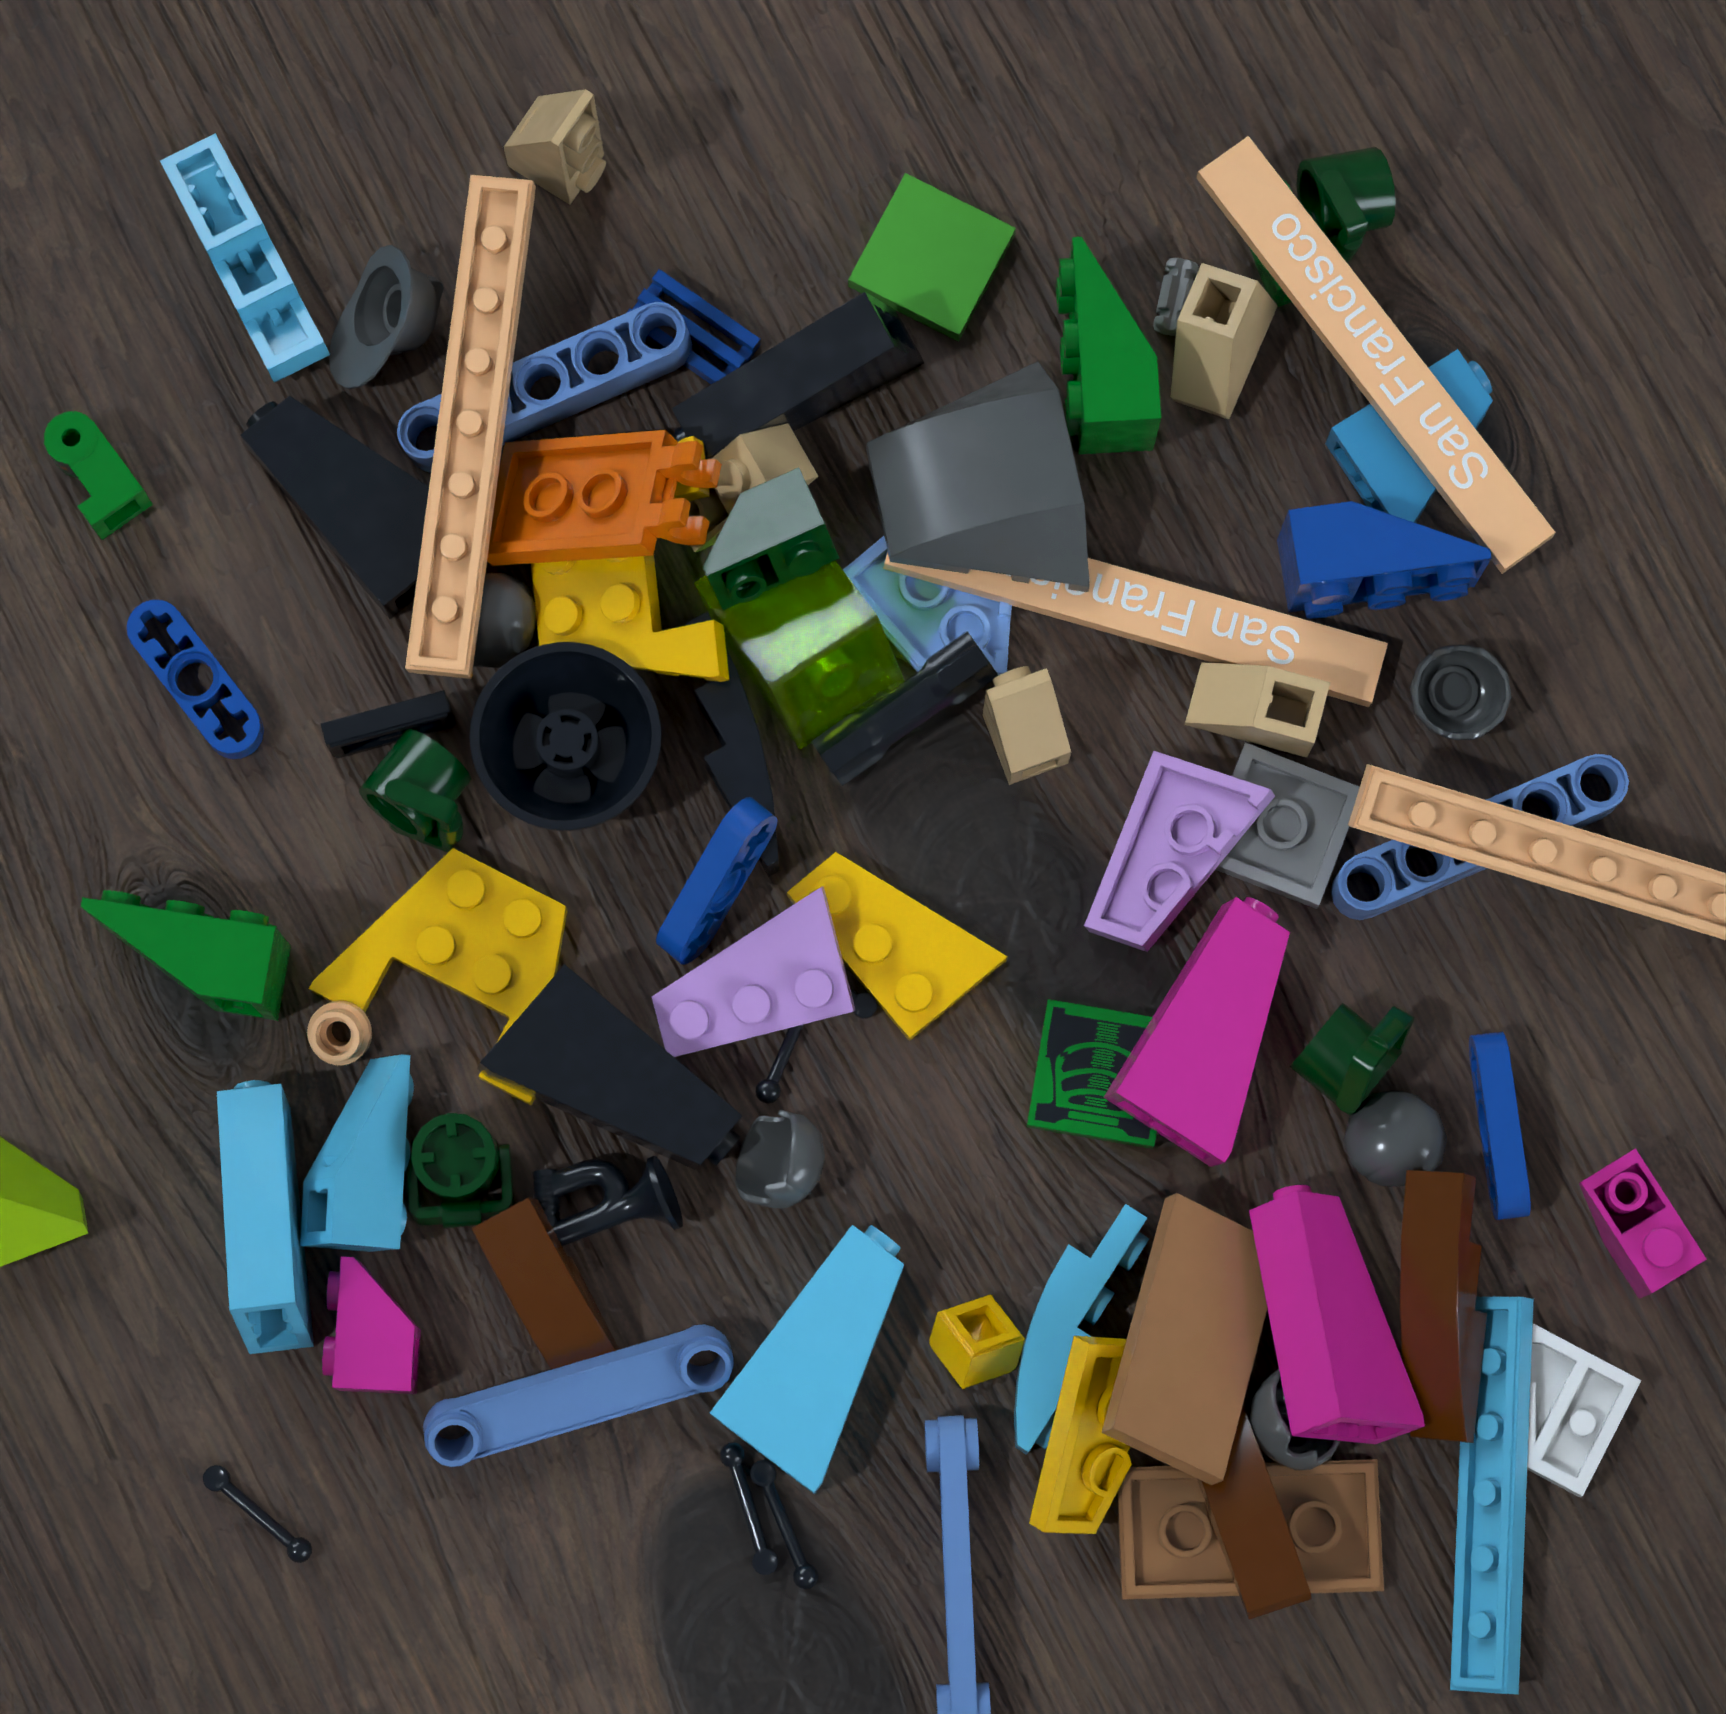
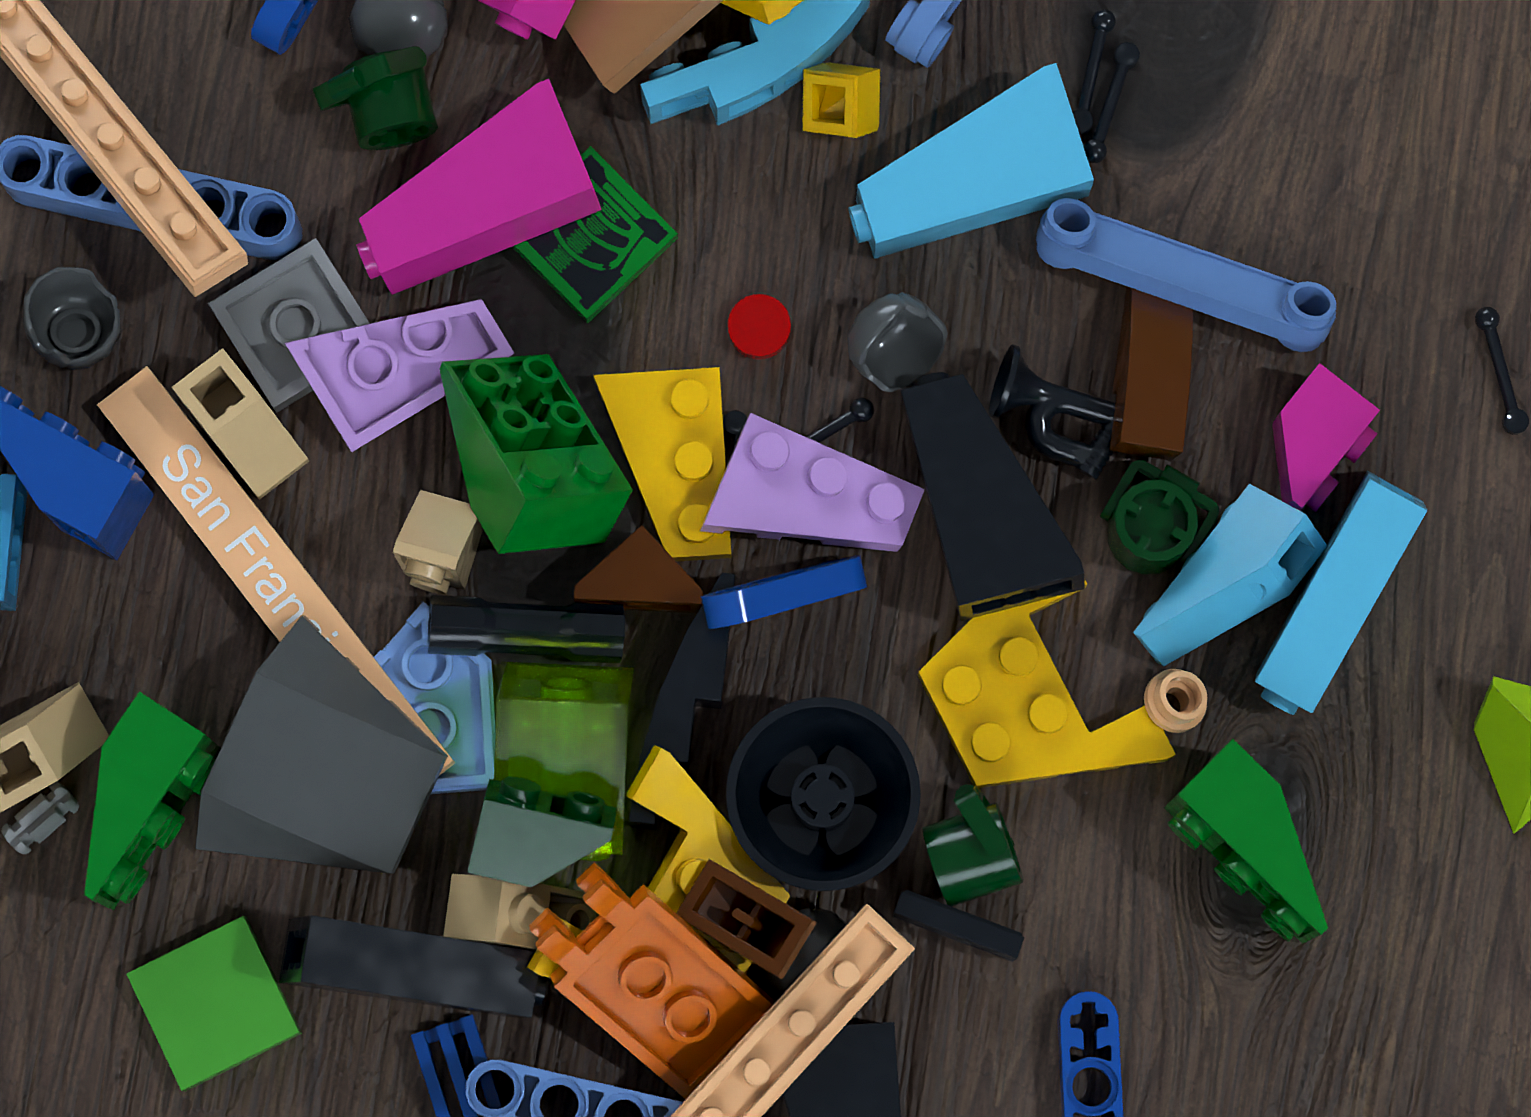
camera: 145 degrees left, 0 degrees up
(553, 594) = (746, 919): none -> reddish brown slope
(842, 817) = (641, 579): none -> reddish brown slope
(903, 1099) = (759, 326): none -> red tile
(1007, 847) = (531, 455): none -> green slope

